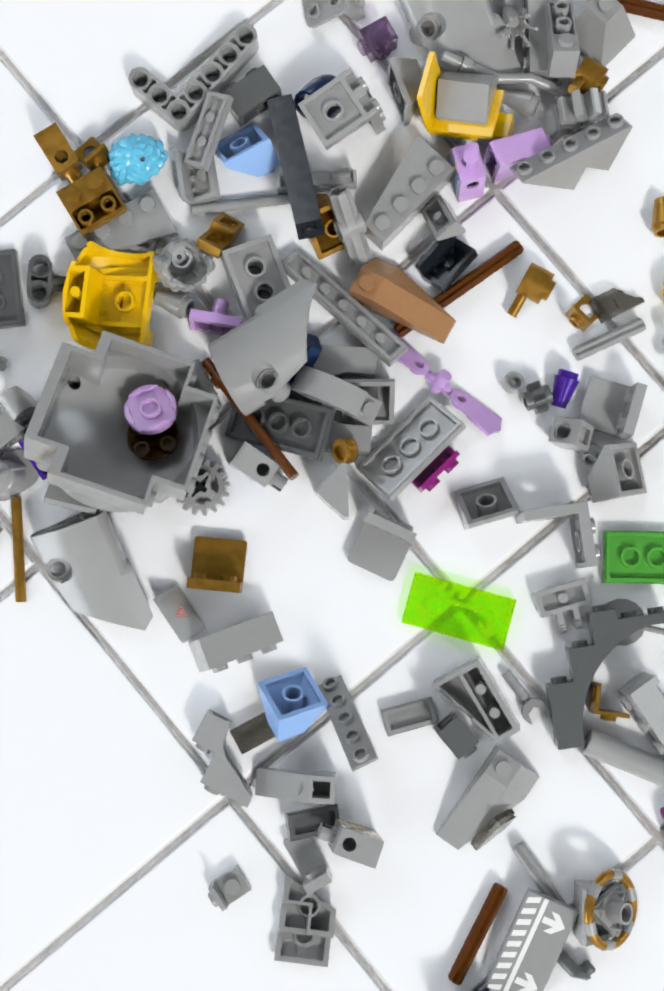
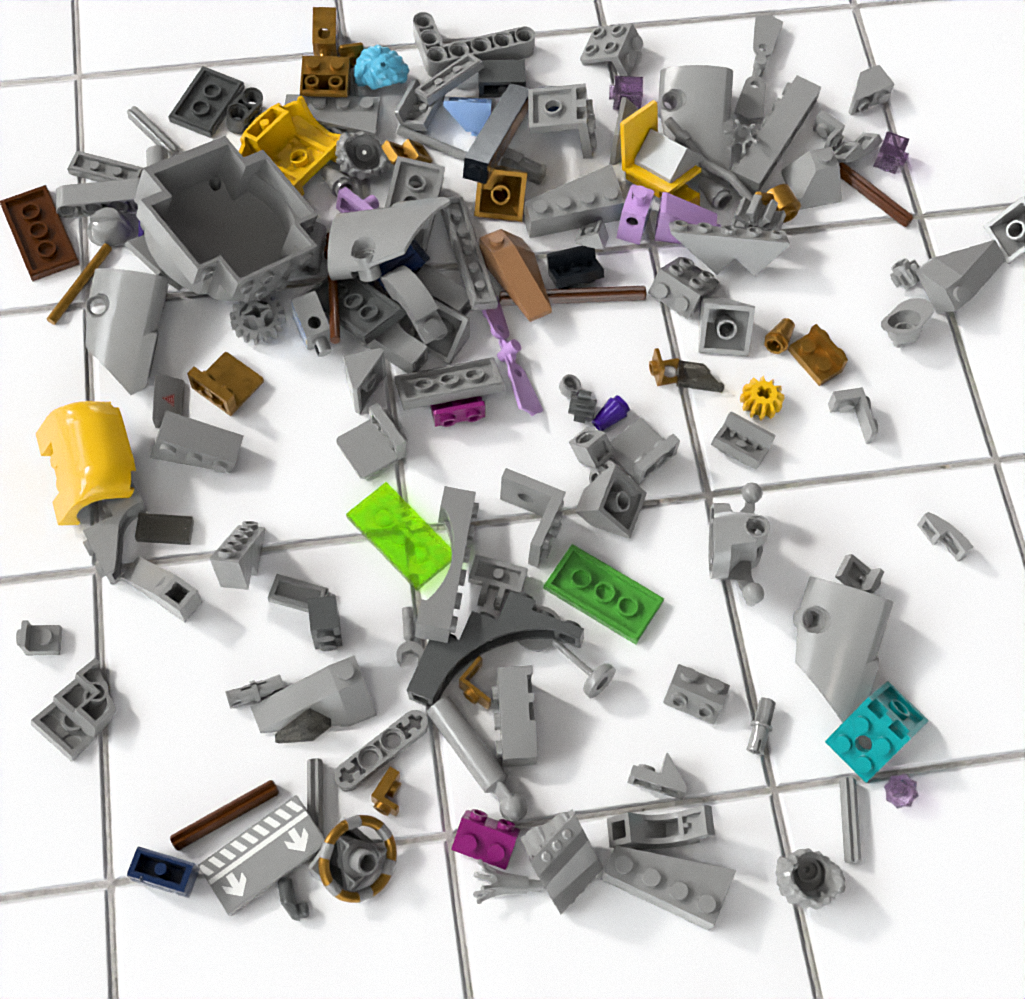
camera: 25 degrees right, 20 degrees down
(150, 409) = (259, 235): lavender tile -> none
(154, 446) = (247, 254): dark brown dish -> none
(157, 715) = (88, 456): none -> yellow piece
(291, 702) = (204, 516): light blue slope -> none
(305, 822) = (151, 626): dark grey tile -> none
(309, 864) = (123, 656): light grey bracket -> none
(345, 450) = (391, 345): pearl gold tile -> none
(349, 225) = (512, 195): light grey piece -> none
(361, 845) = (177, 662): light grey torso -> none
(432, 821) = (254, 691): none -> light grey pin
(479, 697) = (368, 607): light grey wedge -> none
(485, 503) = (480, 465): light grey slope -> none
(535, 285) = (636, 322): pearl gold piece -> none
(547, 674) = (436, 614): none -> light grey arch
(551, 218) = (682, 286): none -> light grey bracket
(561, 39) = (771, 159): light grey slope -> none
(568, 805) = (384, 753): none -> light grey beam
(590, 834) = (387, 787): none -> pearl gold bracket
(608, 339) = (675, 400): light grey axle -> none
(610, 238) = (725, 326): none -> light grey slope

